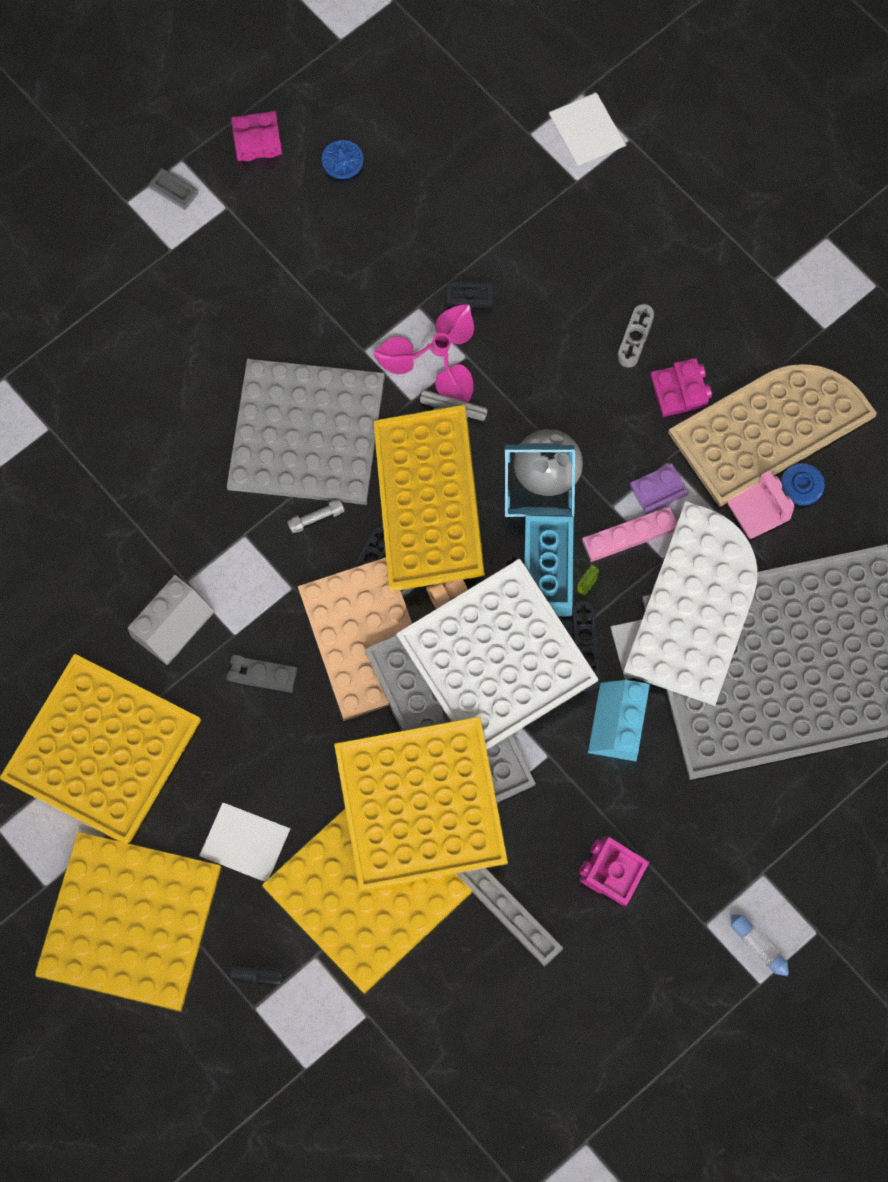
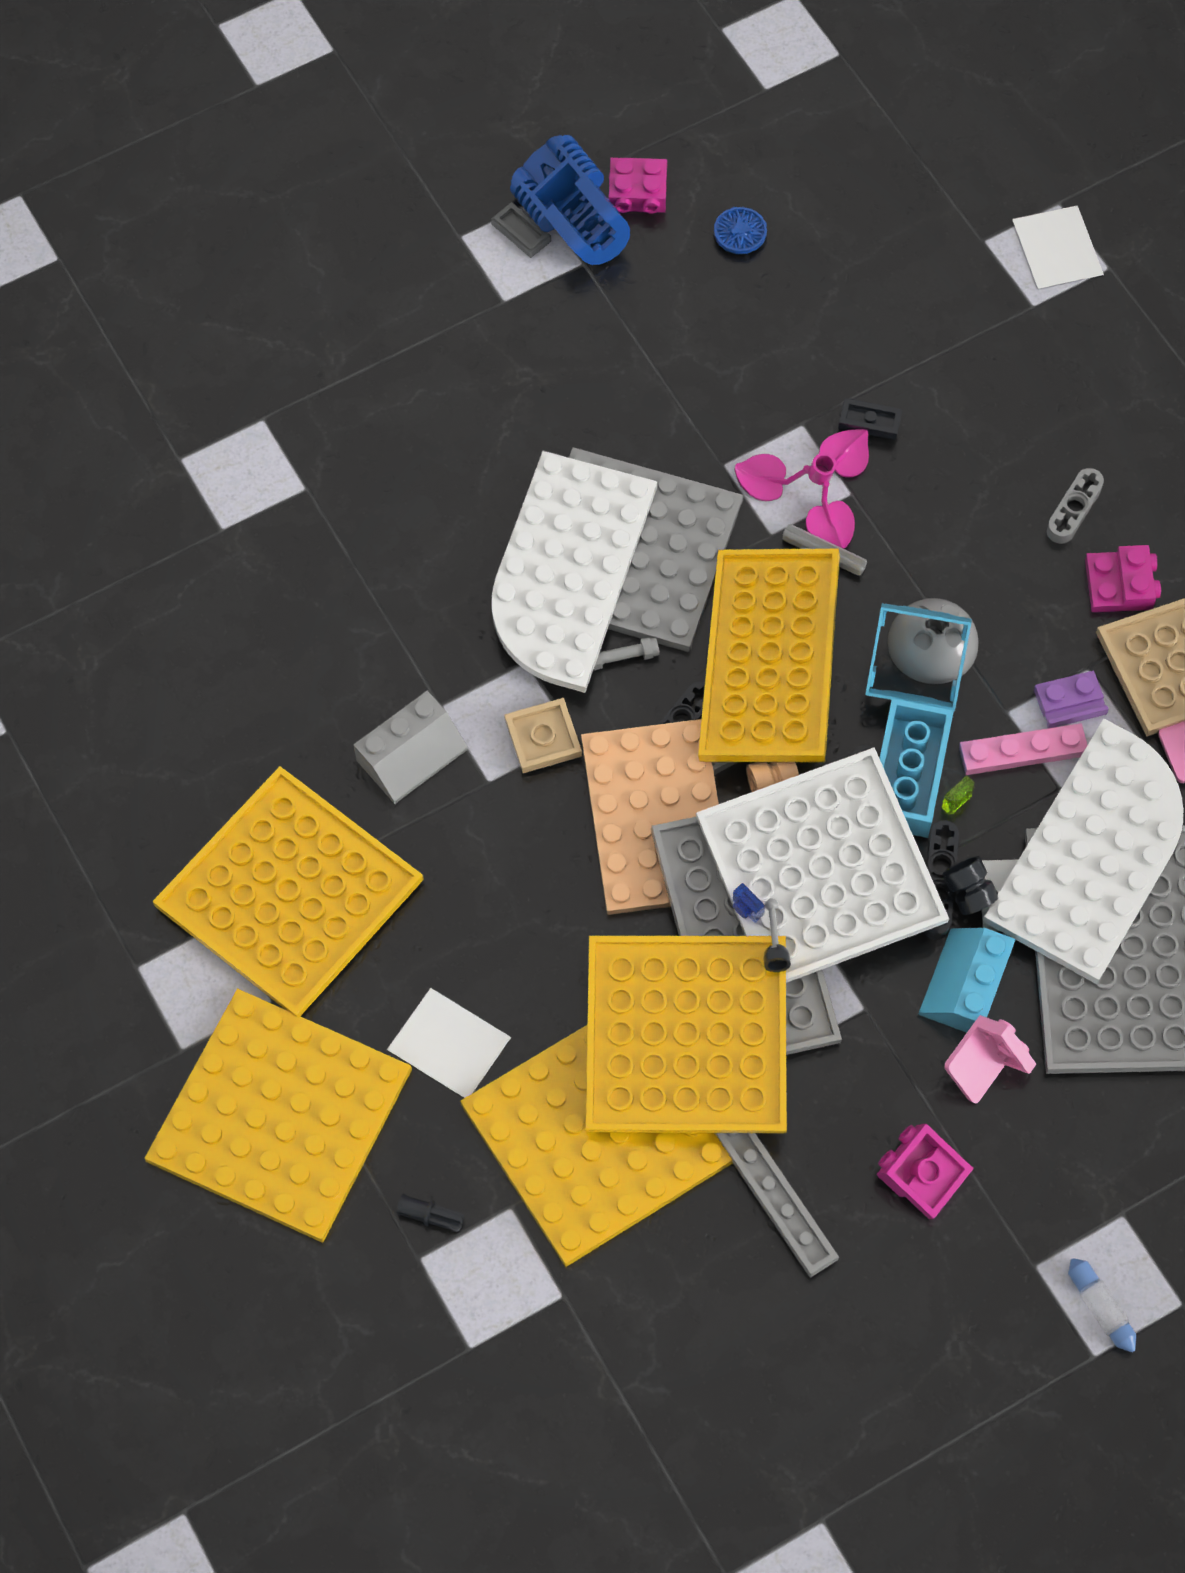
camera: 10 degrees right, 5 degrees down
(200, 156) = (564, 194): none -> blue connector
(262, 455) = (567, 566): none -> white plate
(262, 674) = (514, 836): dark grey plate -> none
(269, 591) = (543, 735): none -> tan plate
(447, 697) = (747, 903): none -> clear blue plate
(476, 734) = (775, 956): none -> black hinge
(611, 651) = (969, 883): none -> black wheel
(641, 776) = (984, 1054): none -> bright pink bracket

